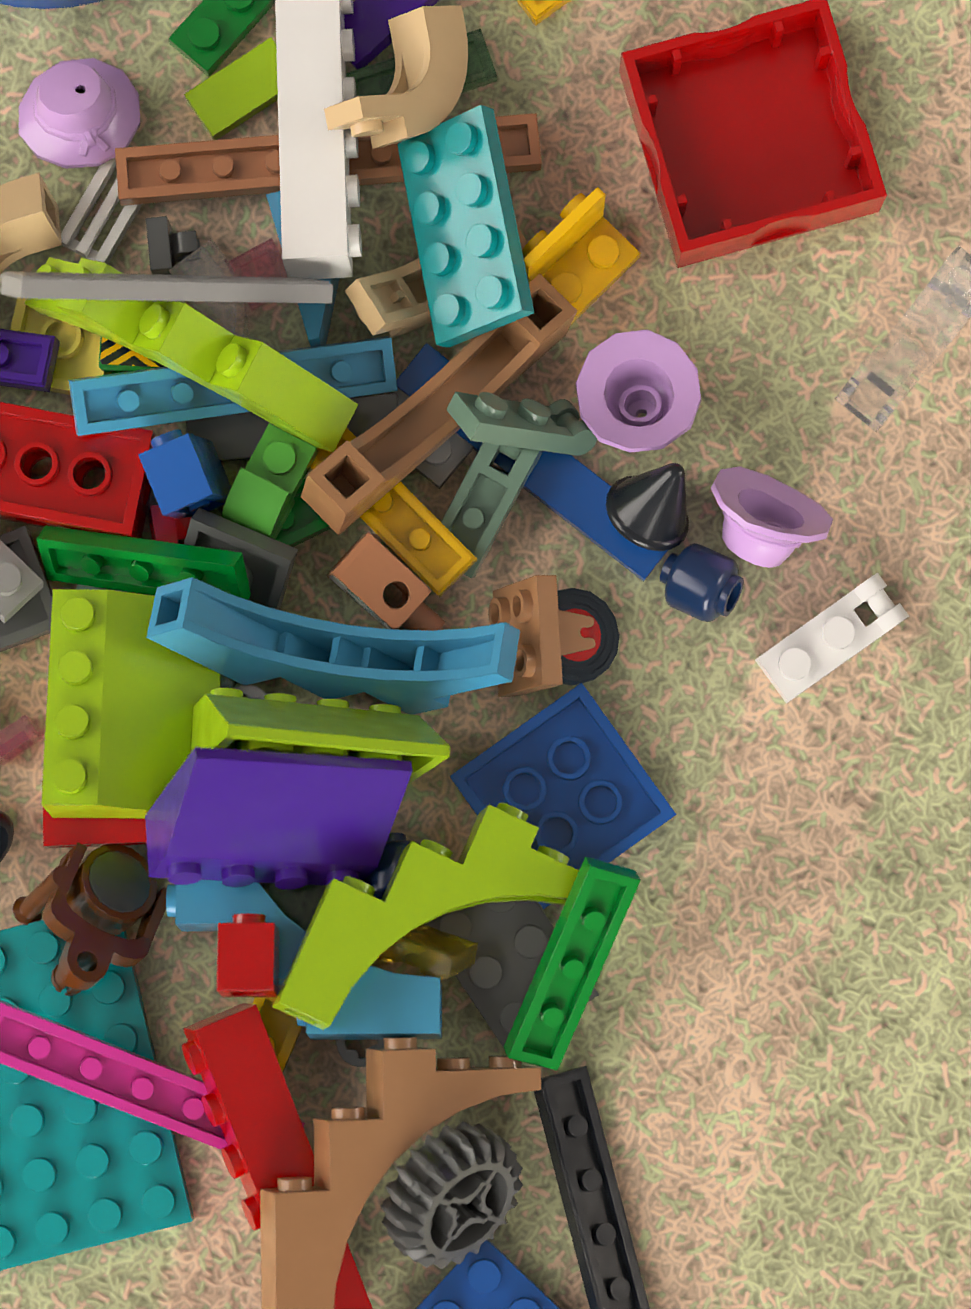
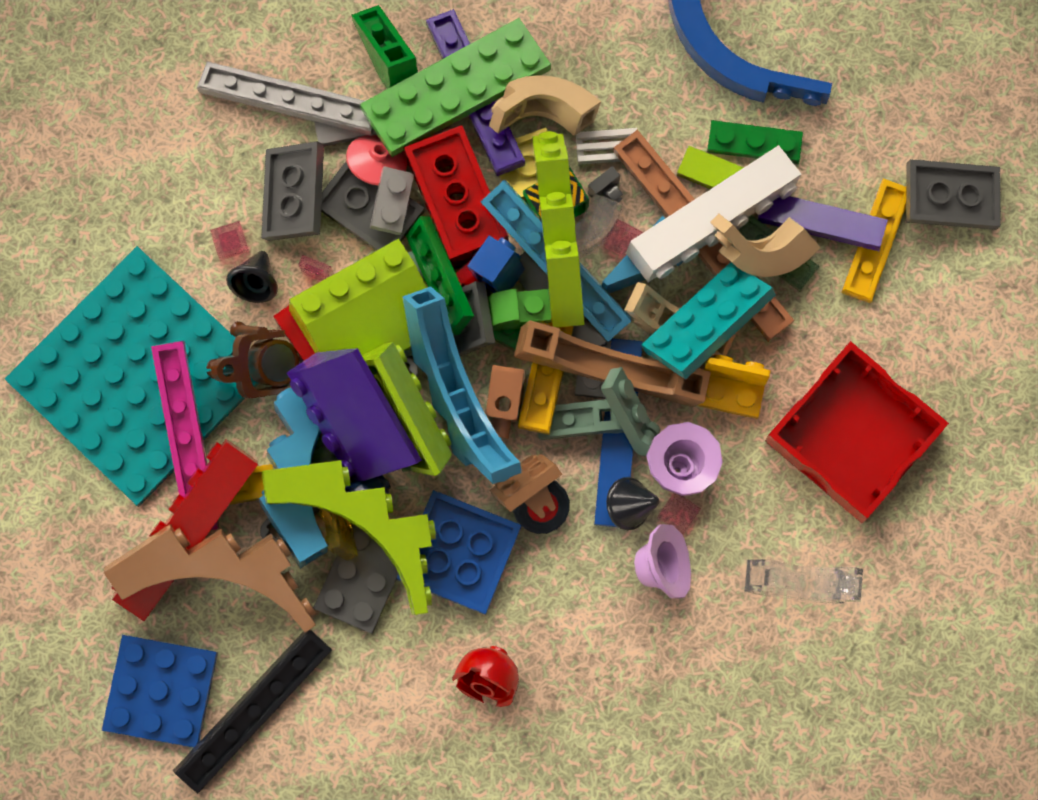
camera: 55 degrees right, 5 degrees down
(77, 127) = (637, 107): lavender hat -> none
(164, 287) = (575, 194): light grey tile -> none
(248, 957) = (278, 445): red brick -> none
(452, 1195) = (225, 620): dark grey gear -> none
(571, 963) = (375, 605): green plate -> none
(701, 582) = (610, 553): dark blue head -> none
(704, 452) = (679, 513): none -> clear pink tile
(767, 863) = (488, 674): none -> red cylinder
(829, 639) = (625, 636): white plate -> none

